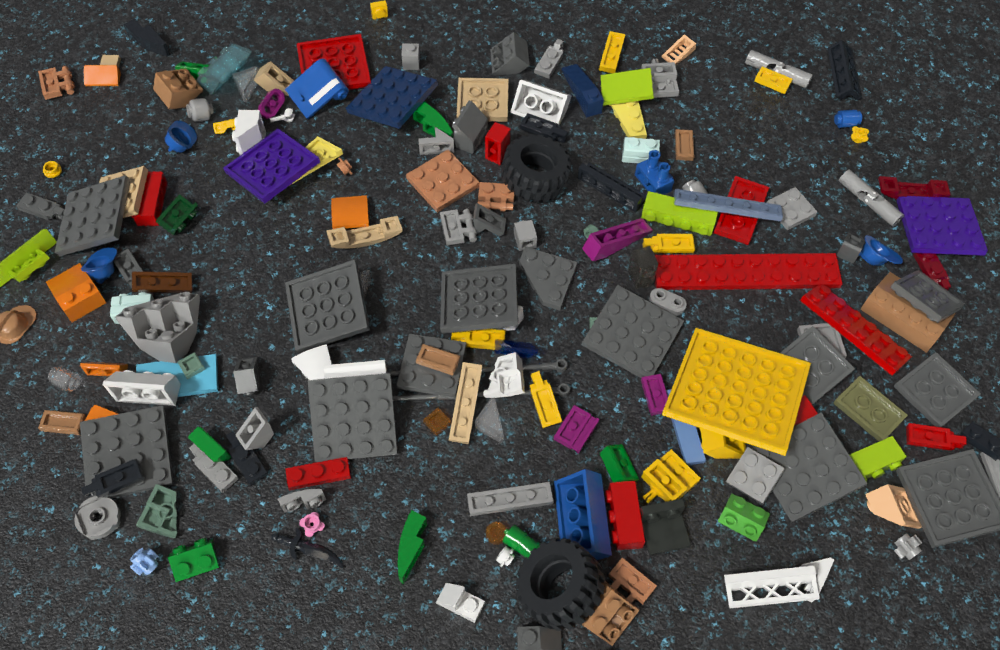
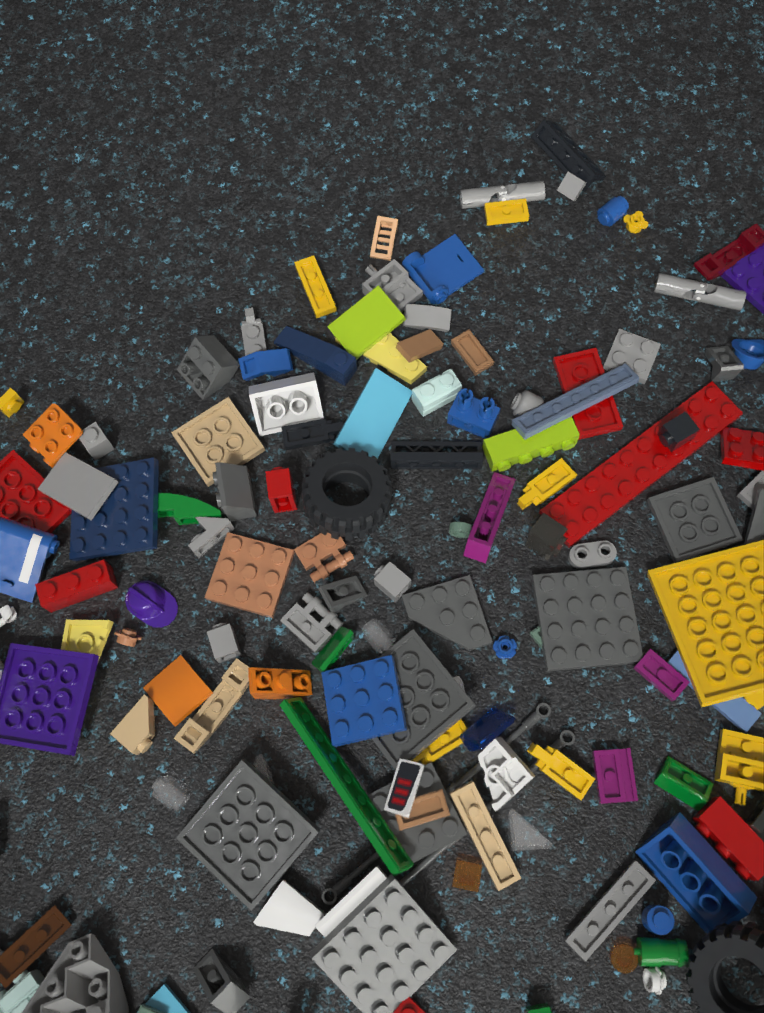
camera: 30 degrees left, 10 degrees up
(301, 260) = (170, 793): none -> clear brick
(312, 214) = (137, 727): none -> tan slope
(338, 123) = (76, 586): none -> red brick
(372, 159) = (151, 604): none -> dark purple piece
(381, 70) = (78, 486): none -> light grey tile
(387, 37) = (53, 434): none -> orange bracket
(397, 203) = (224, 642): none -> light grey brick
(404, 318) = (347, 786): none -> green tile
(409, 242) = (279, 683): none -> orange slope
(437, 338) = (404, 787): none -> slope
(453, 282) = (363, 701): none -> blue plate
(459, 250) = (333, 649): none -> green slope
(491, 256) = (378, 636): none -> clear brick
(535, 521) = (657, 919): none -> blue brick
(550, 75) = (265, 362): none -> blue slope
(566, 320) = (502, 653): none -> blue plate
(591, 139) = (374, 415): none -> medium azure tile
(651, 119) = (419, 345): none -> medium nougat tile
(670, 107) = (427, 317): none -> light grey slope
(702, 88) = (441, 271): none -> blue door
(755, 321) = (694, 520): none -> dark grey plate
(783, 262) = (678, 431): none -> black brick
(831, 89) = (571, 186): none -> light grey tile

